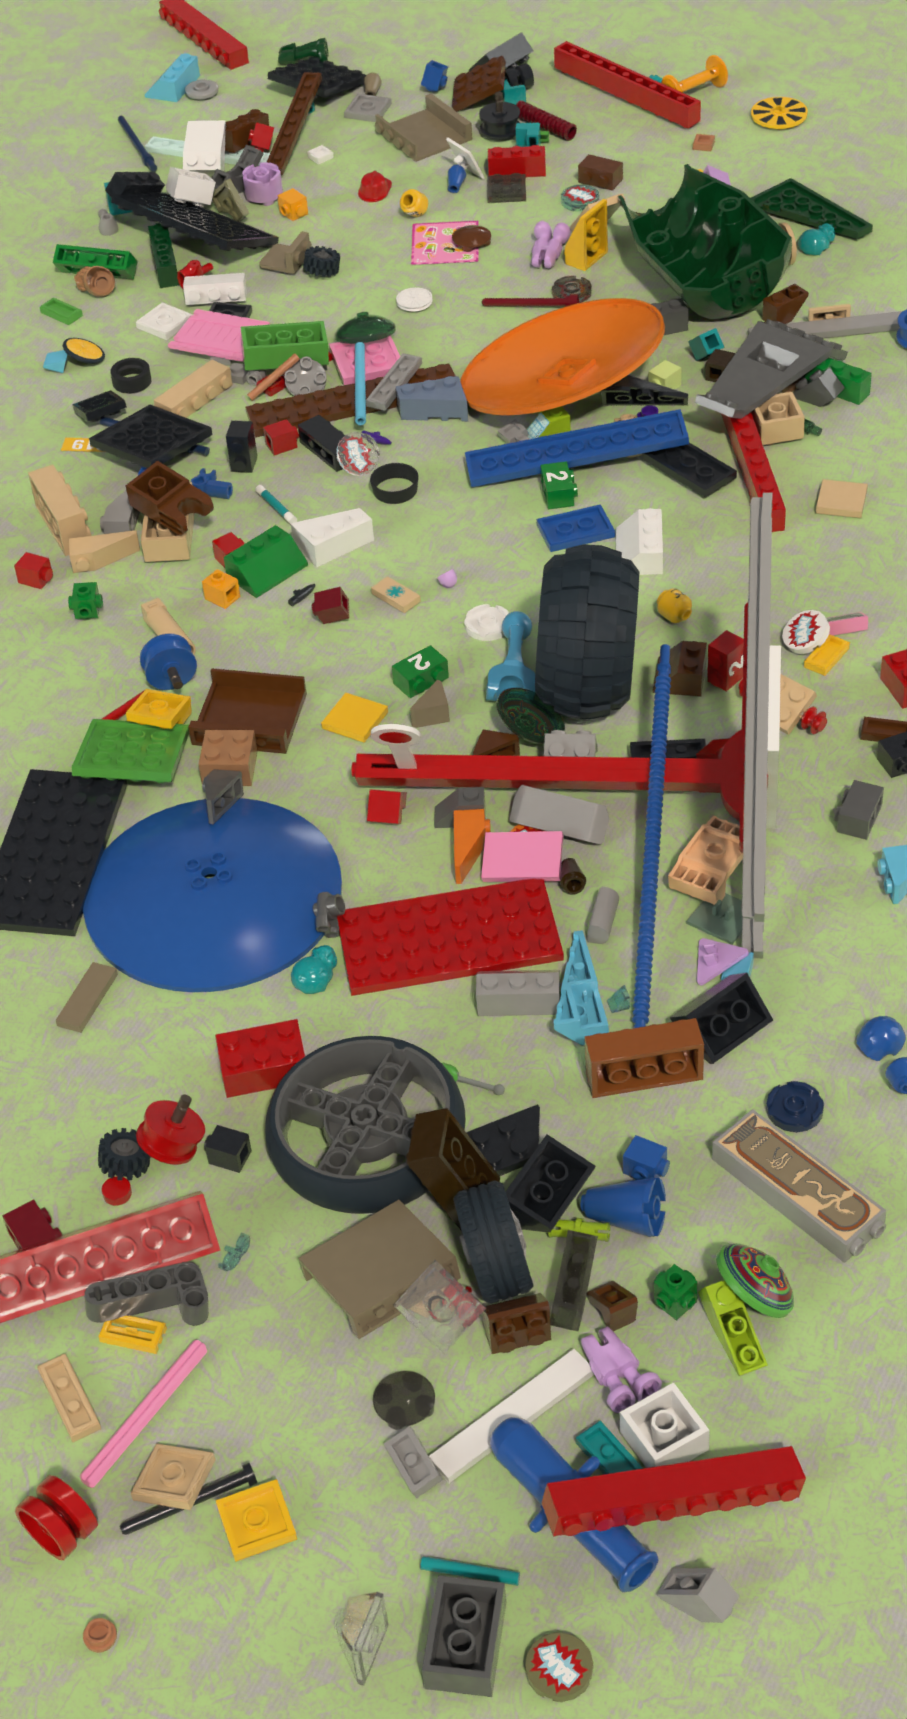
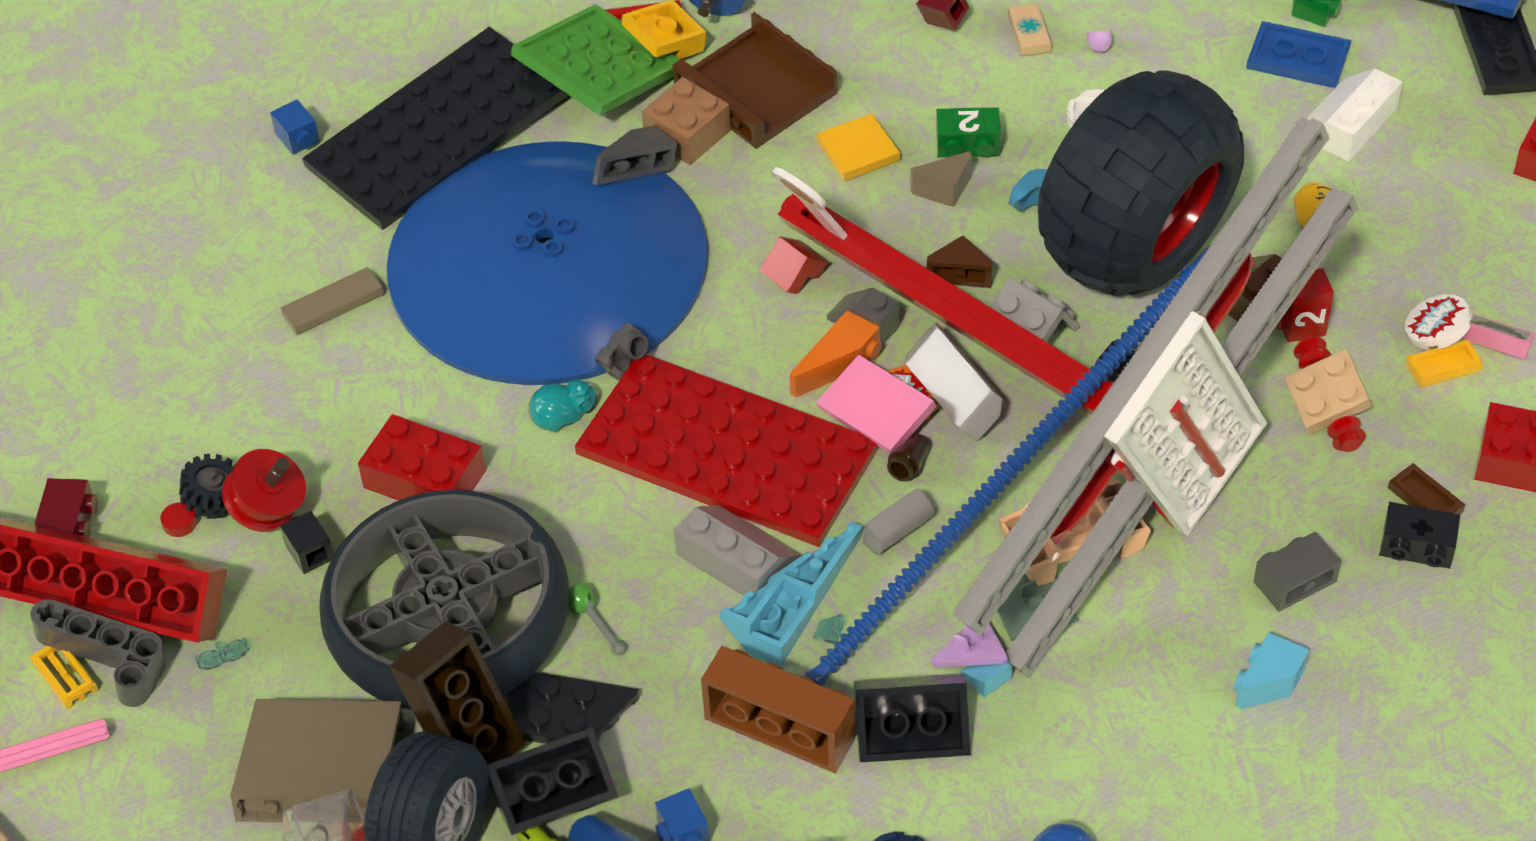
camera: 35 degrees right, 5 degrees up
(527, 715) = (1019, 249): clear green dish -> none

